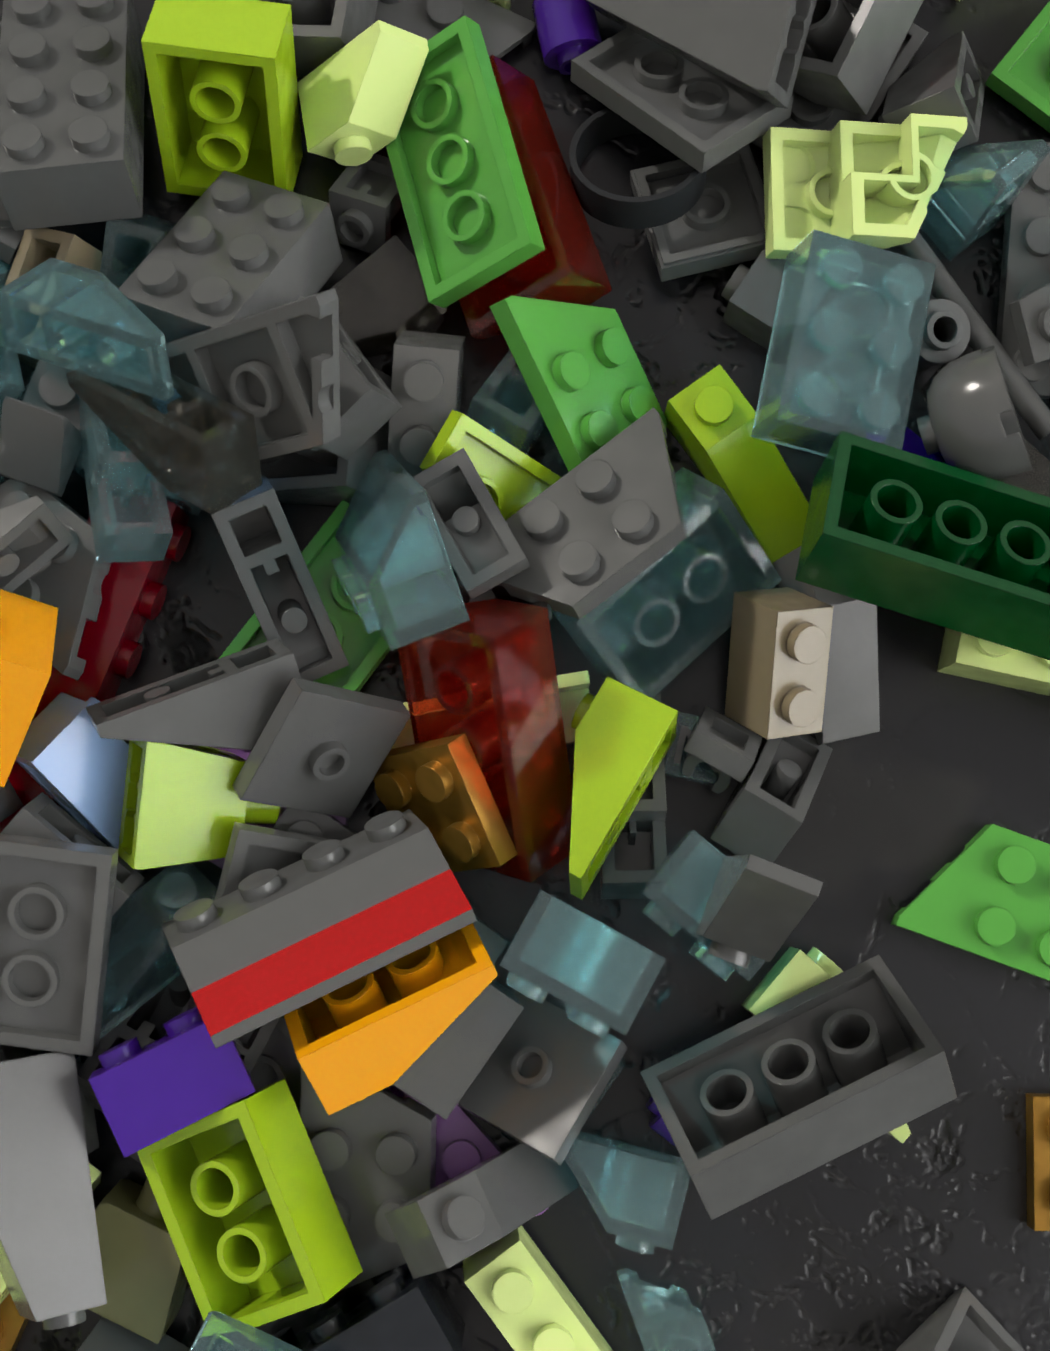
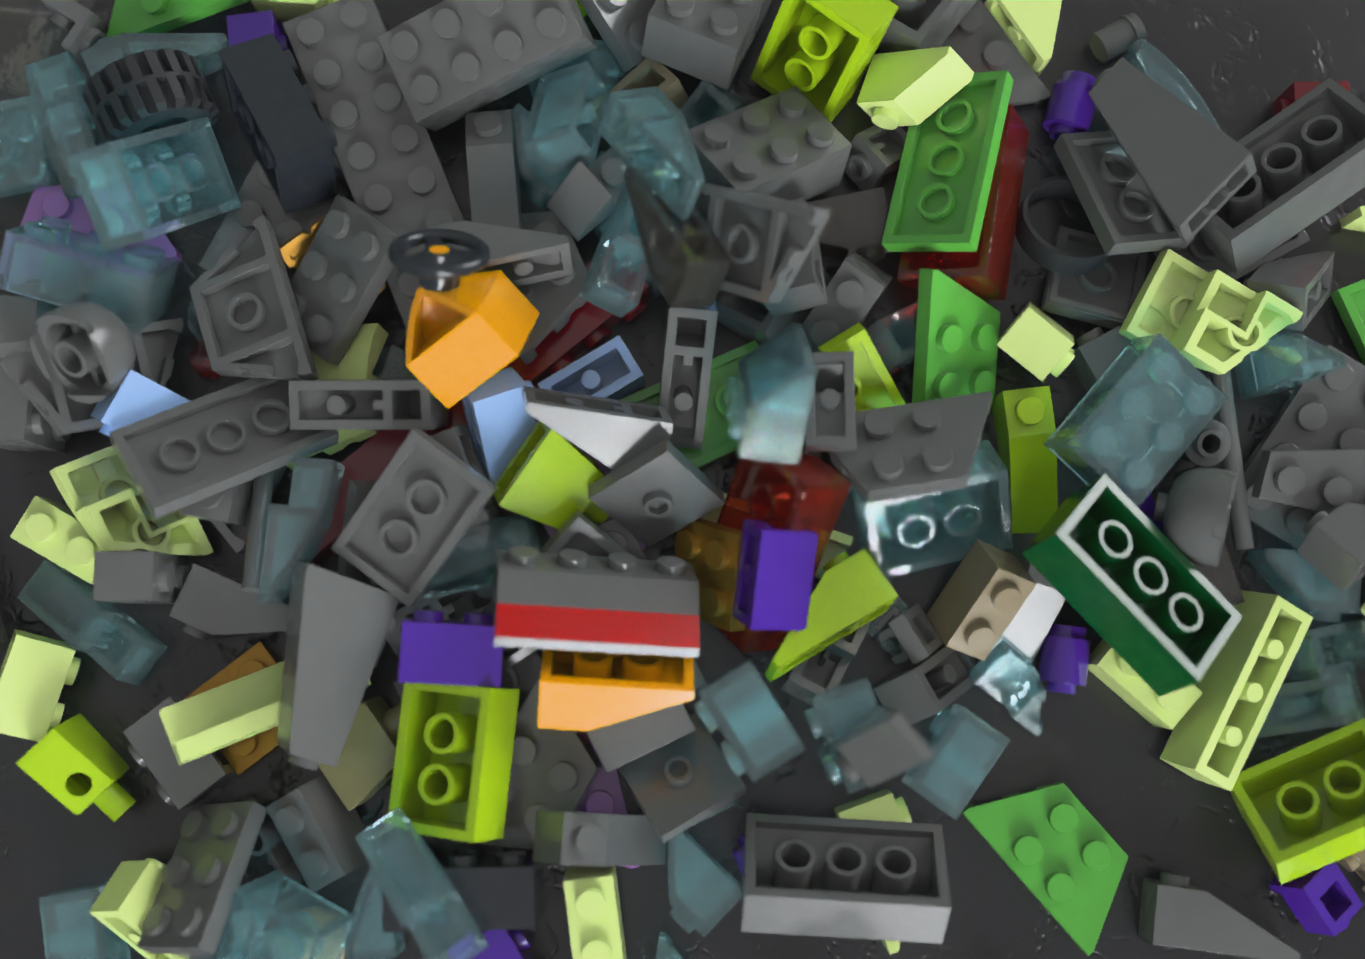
camera: 30 degrees right, 0 degrees up
(176, 639) = (601, 373): none -> light blue brick
(517, 771) = (774, 577): none -> dark purple panel
(679, 321) = (1038, 343): none -> yellowish green brick
(858, 860) = (962, 758): none -> clear light blue brick
(870, 739) = (1013, 683): none -> clear light blue slope
(914, 676) = (1065, 658): none -> dark purple brick

